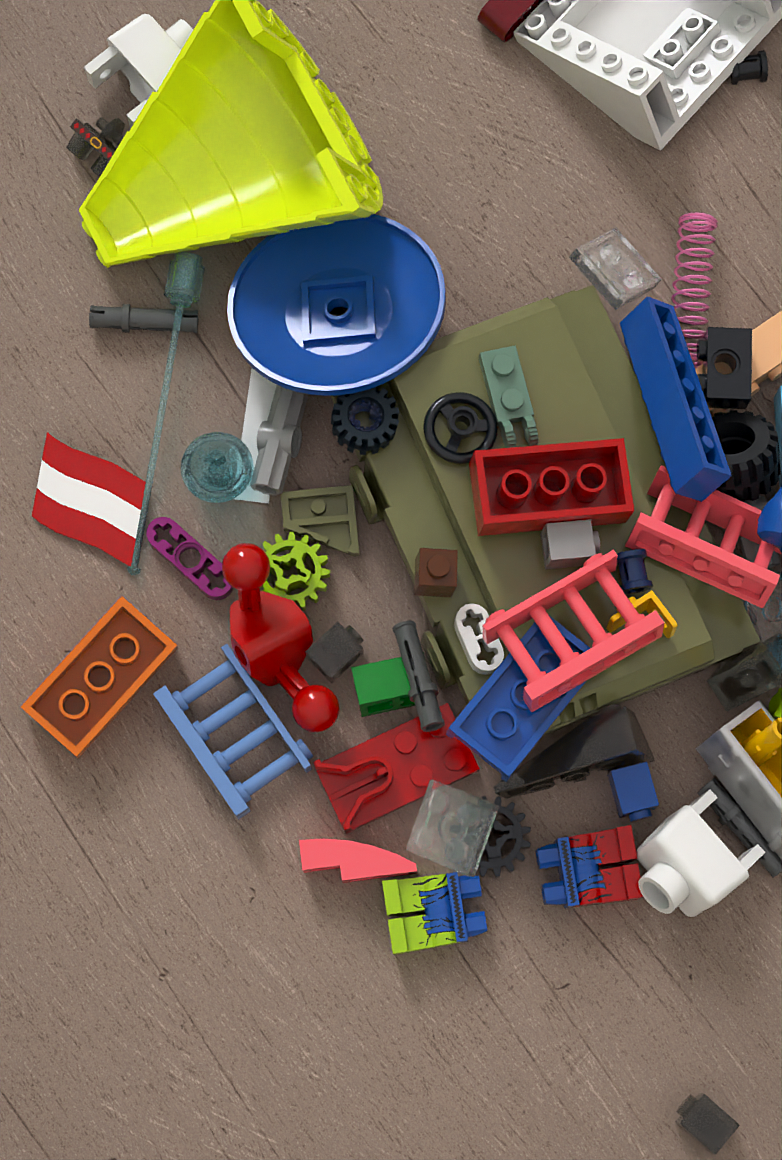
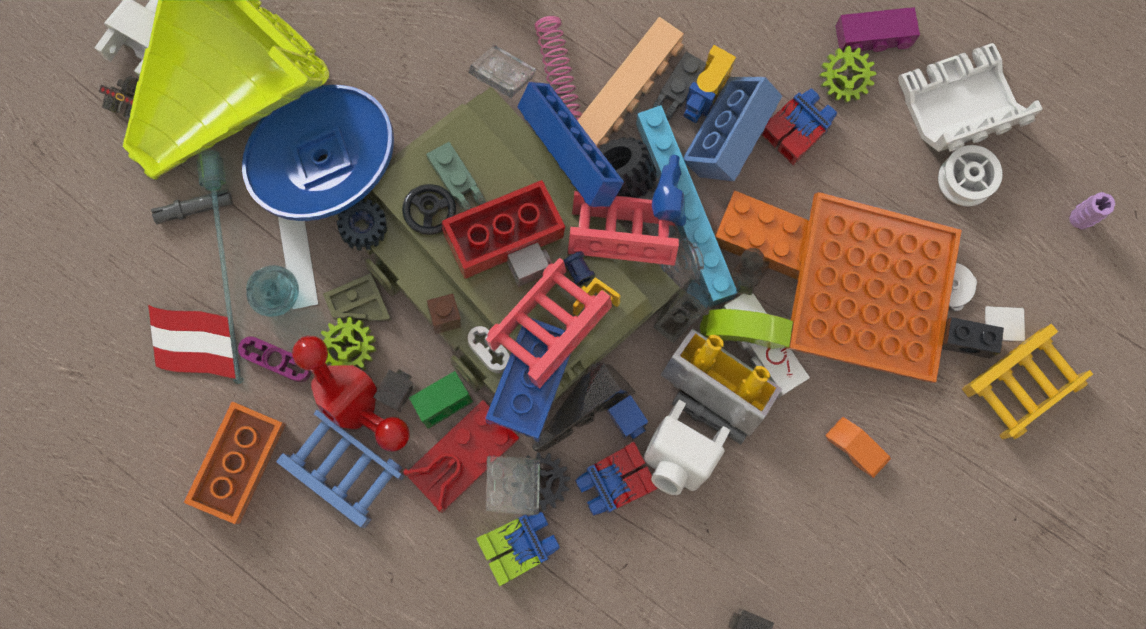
camera: 20 degrees left, 0 degrees up
(278, 441) = (310, 259): light grey piece -> none
(354, 859) = (451, 529): coral slope -> none
(422, 689) = (461, 397): dark grey pin -> none
(735, 349) = (597, 98): black brick -> none

